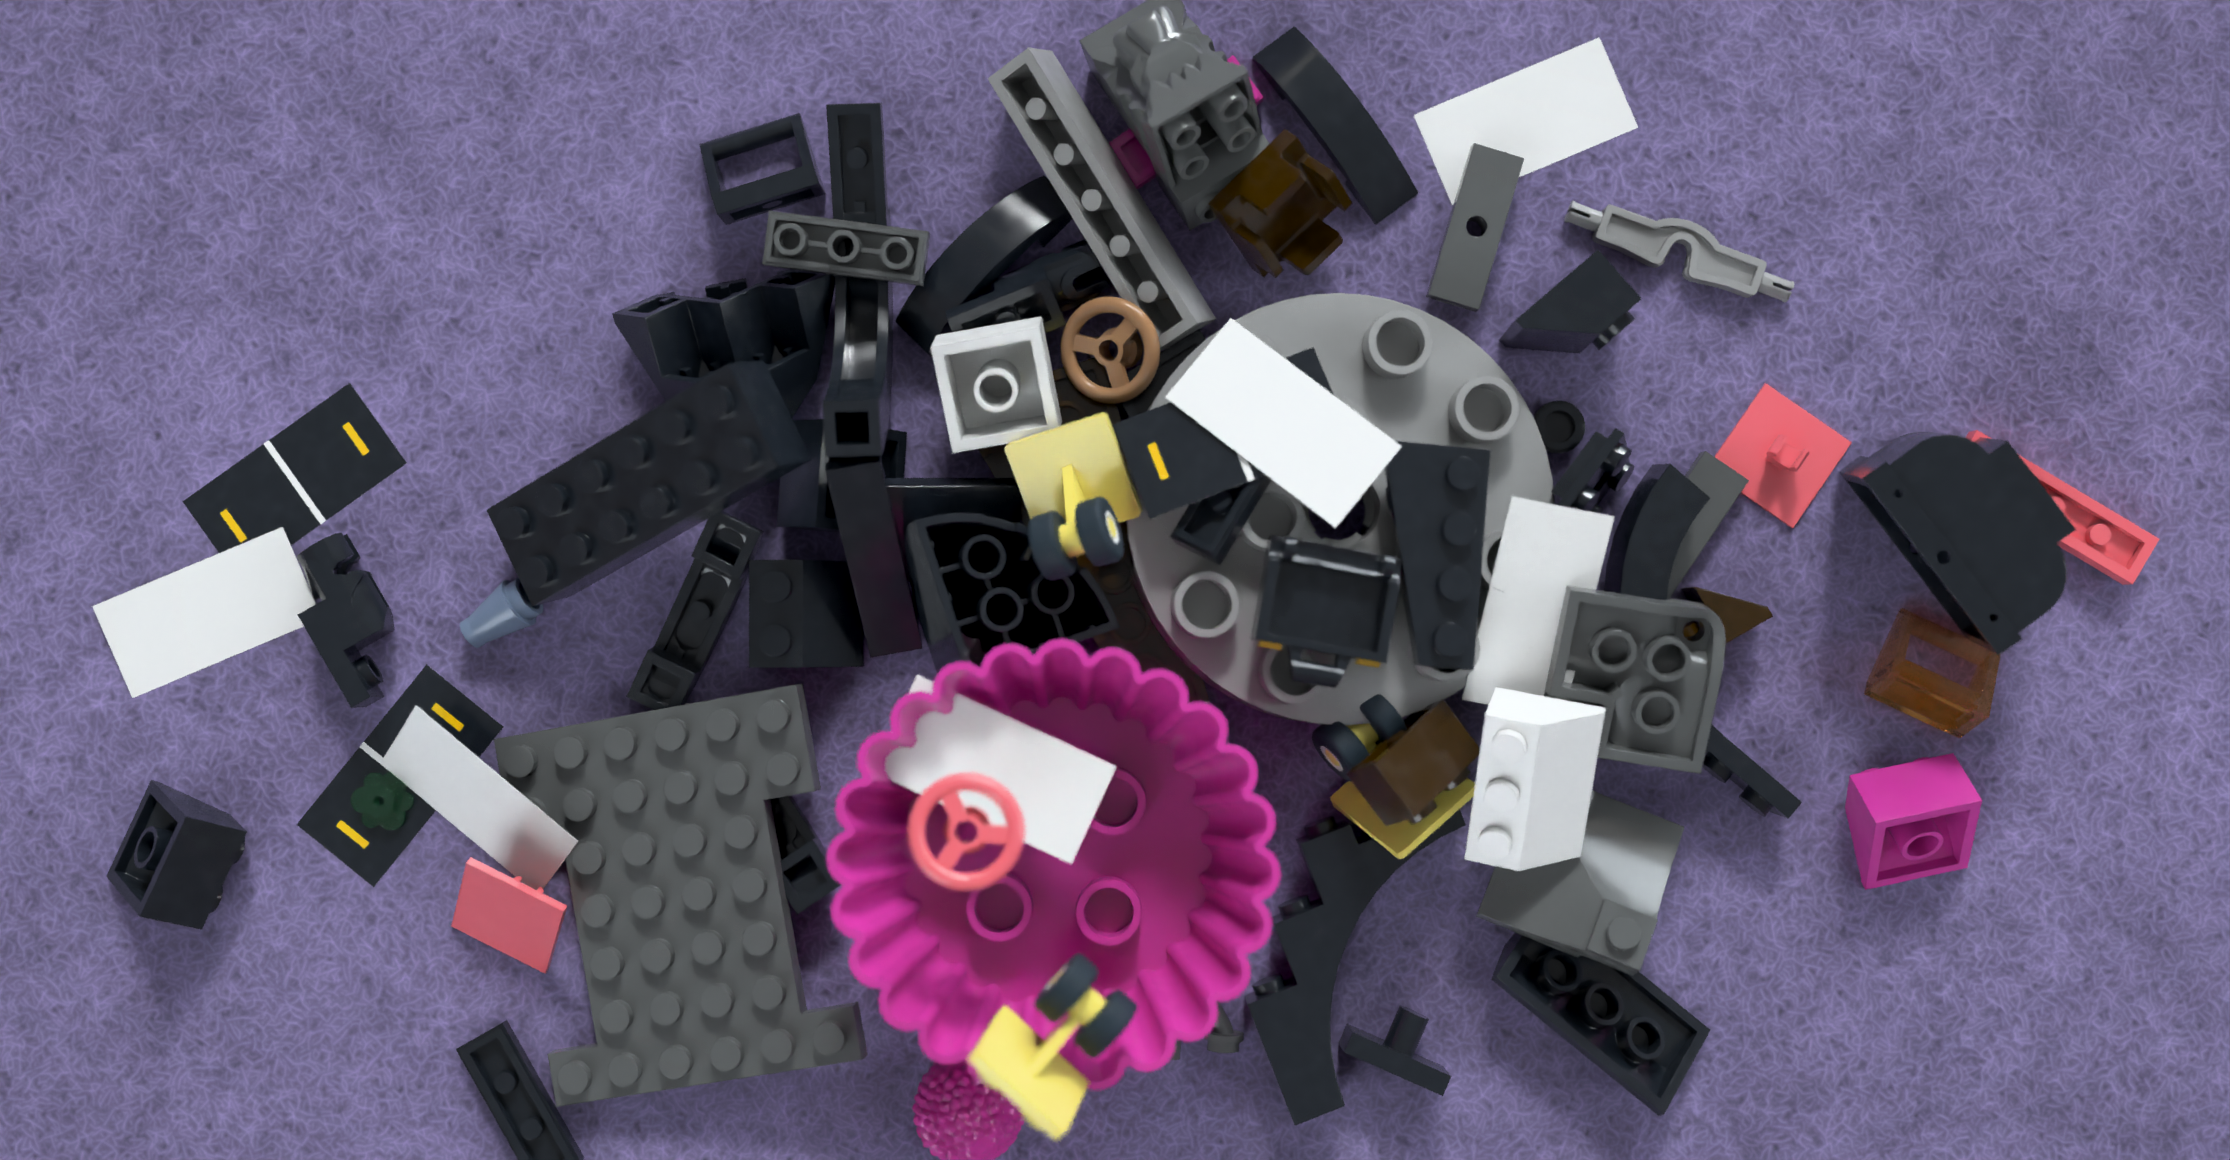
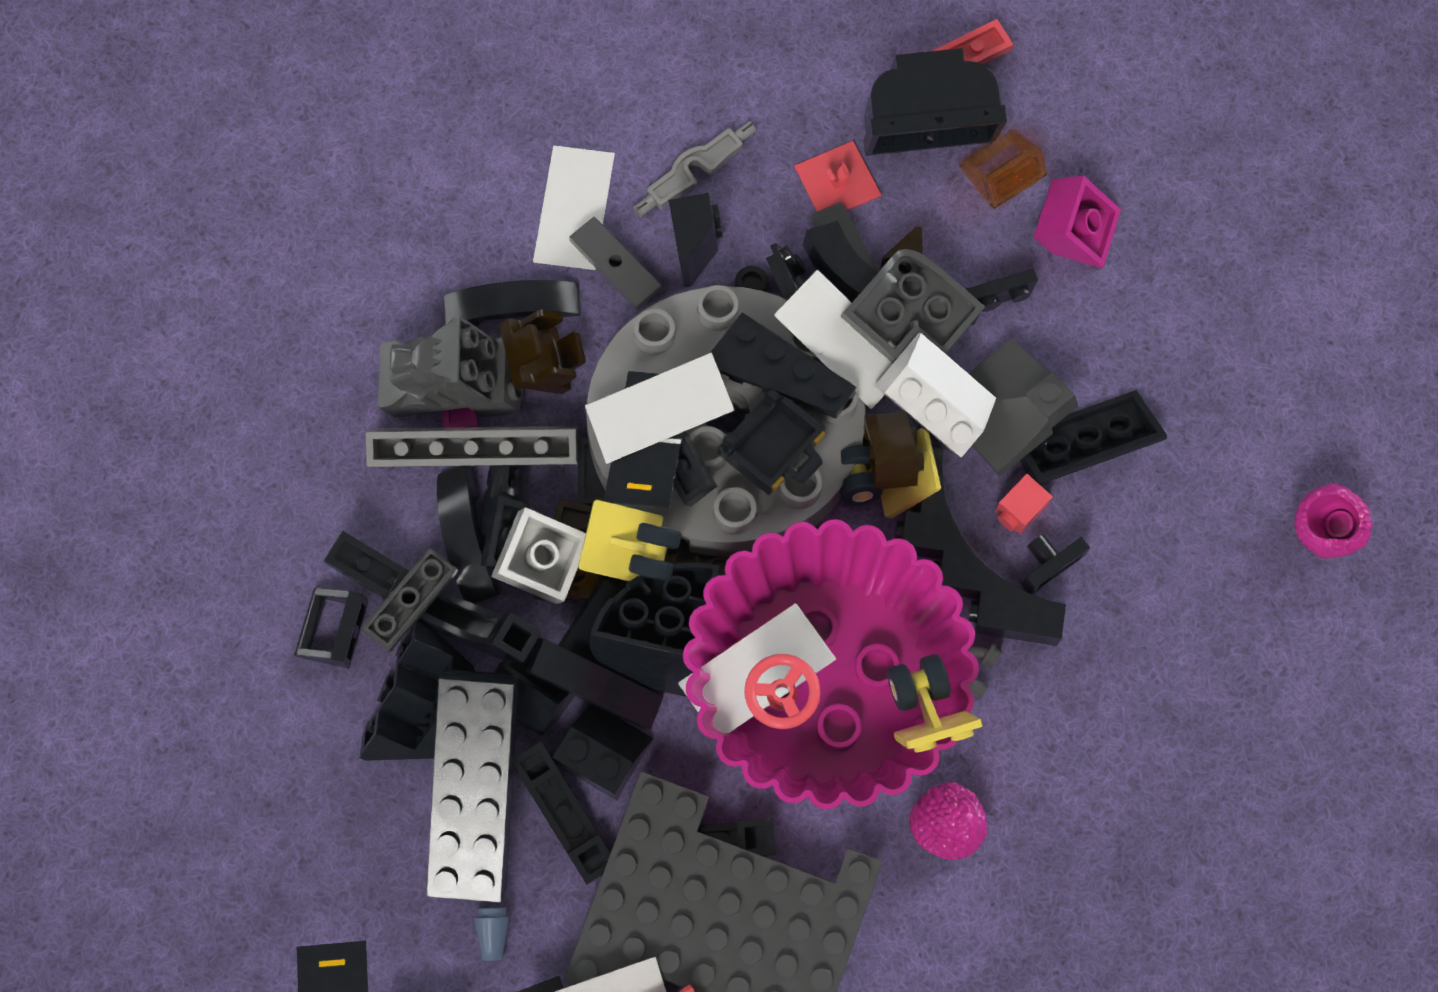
camera: 50 degrees left, 15 degrees down
(1128, 346) = (585, 494): medium nougat piece -> none
(1453, 970) = (1023, 505): none -> coral brick

